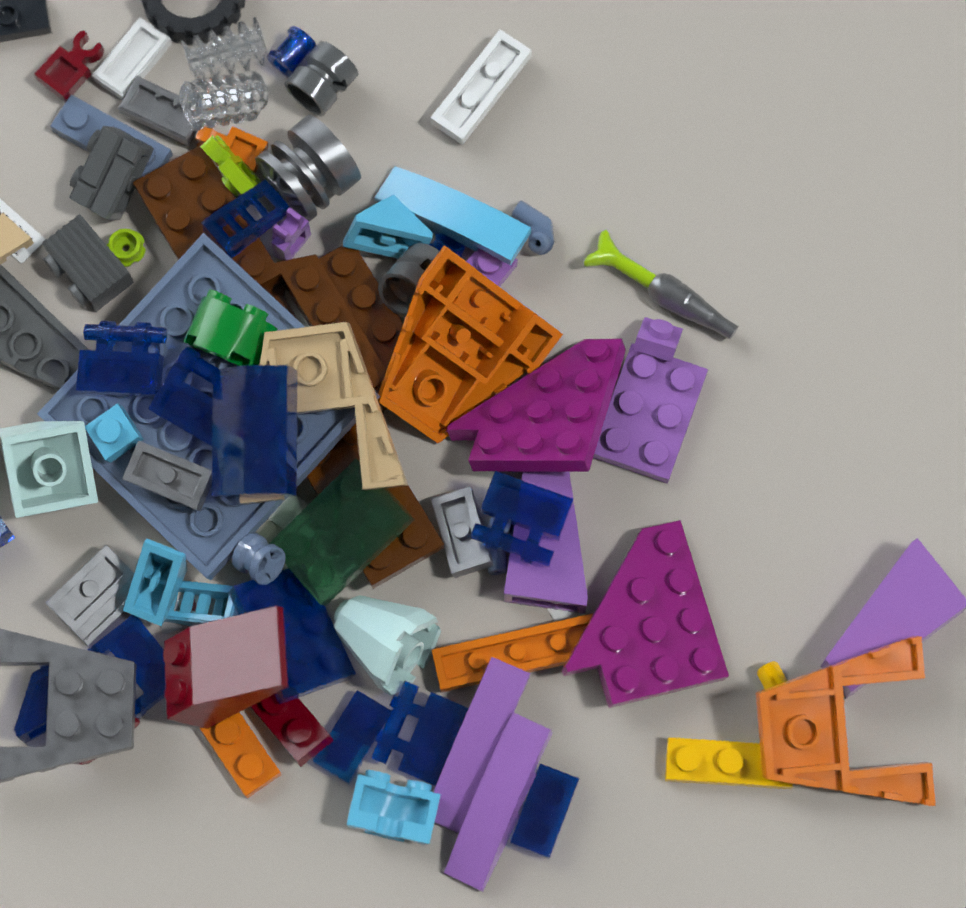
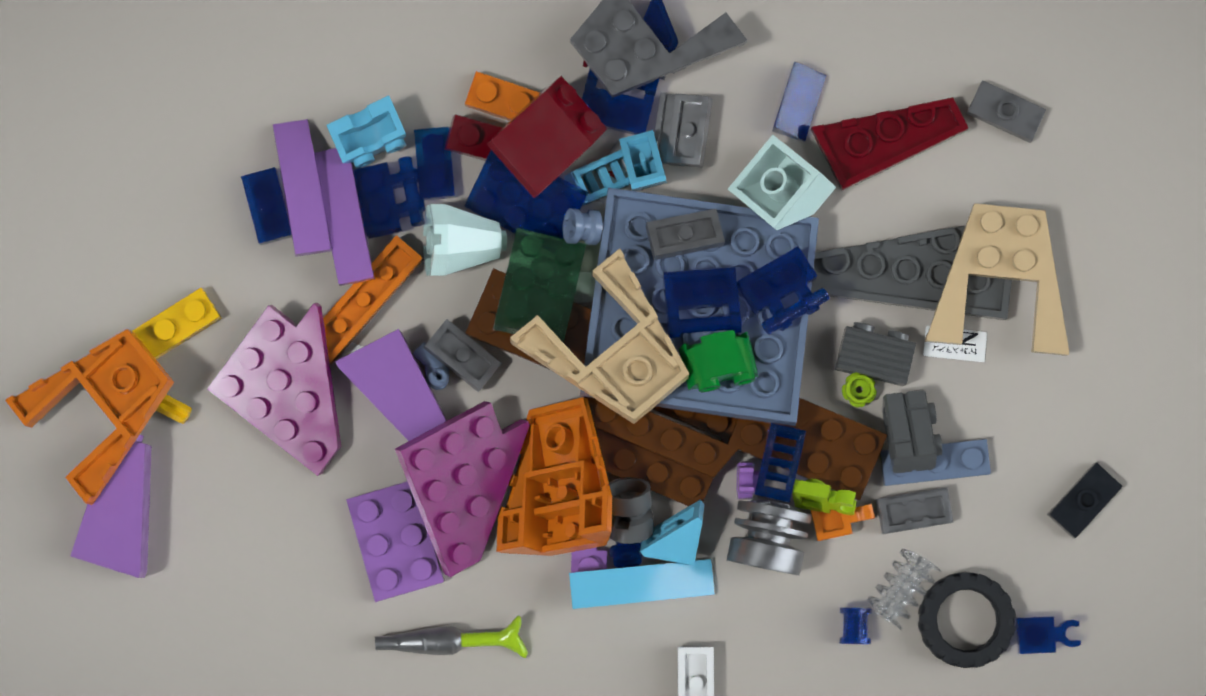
camera: 145 degrees right, 10 degrees up
(67, 71) = (1009, 488): dark red plate -> none
(114, 433) = (750, 239): medium azure plate -> none
(132, 58) = (970, 536): white tile -> none
(223, 99) = (871, 545): clear piece -> none
(254, 431) = (640, 297): clear blue slope -> none
(317, 83) = (816, 618): dark grey wheel -> none
(527, 507) = (424, 396): clear blue plate -> none
(542, 235) = (573, 622): sand blue arm -> none
(658, 338) = (426, 597): medium lavender plate -> none

